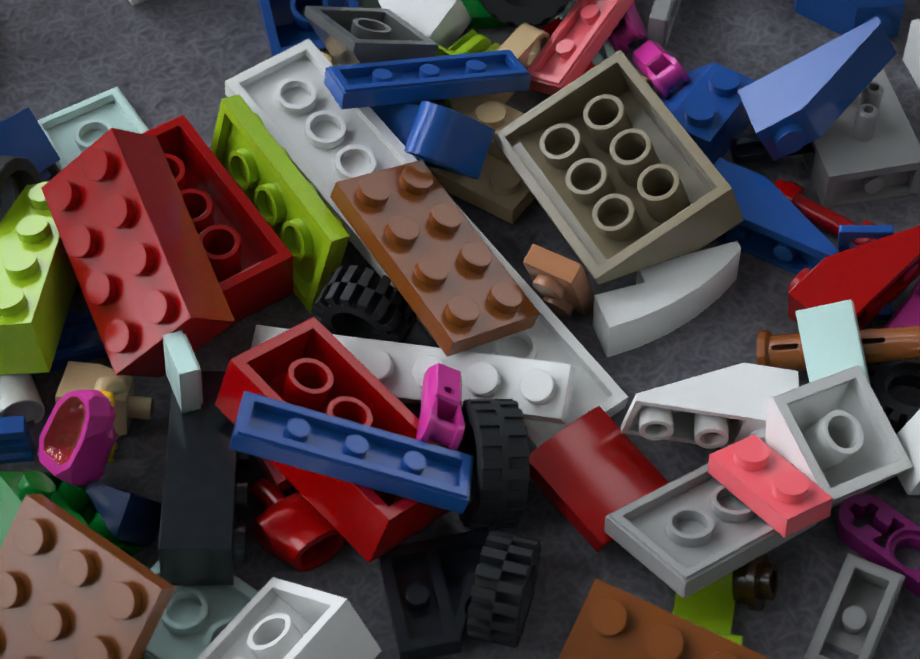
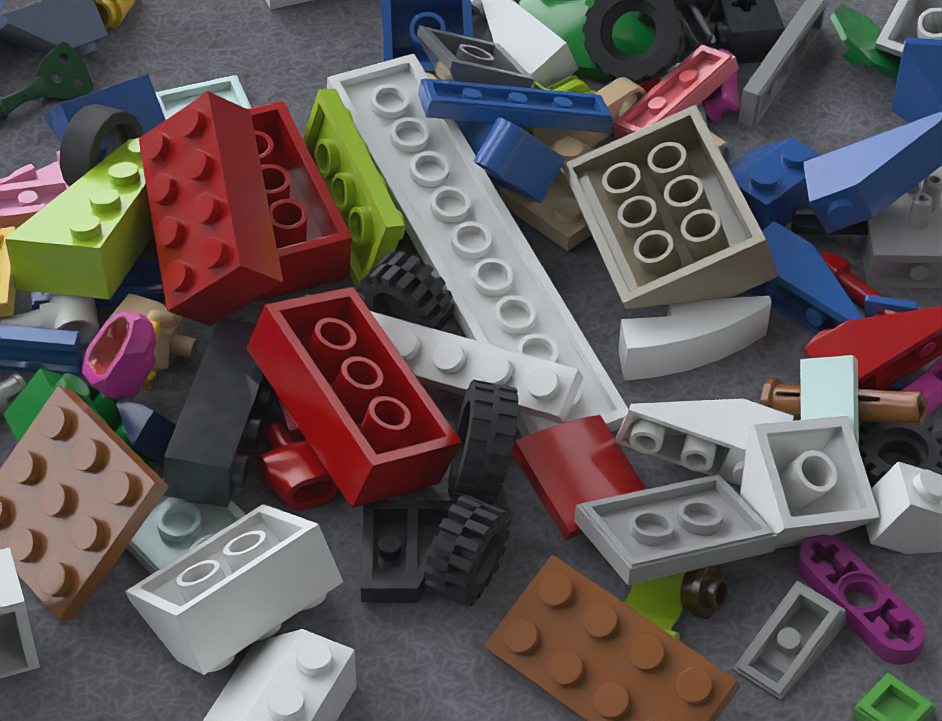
camera: 10 degrees right, 5 degrees down
(183, 371) = (225, 314): light aqua tile -> none
(352, 452) = (354, 402): blue tile -> none
(434, 257) = (479, 258): dark orange plate -> none
(441, 407) = (448, 383): dark pink bar -> none
(559, 282) = (591, 301): nougat plate -> none
(659, 67) = (741, 135): dark pink bar -> none
(770, 485) = (736, 505): coral plate -> none

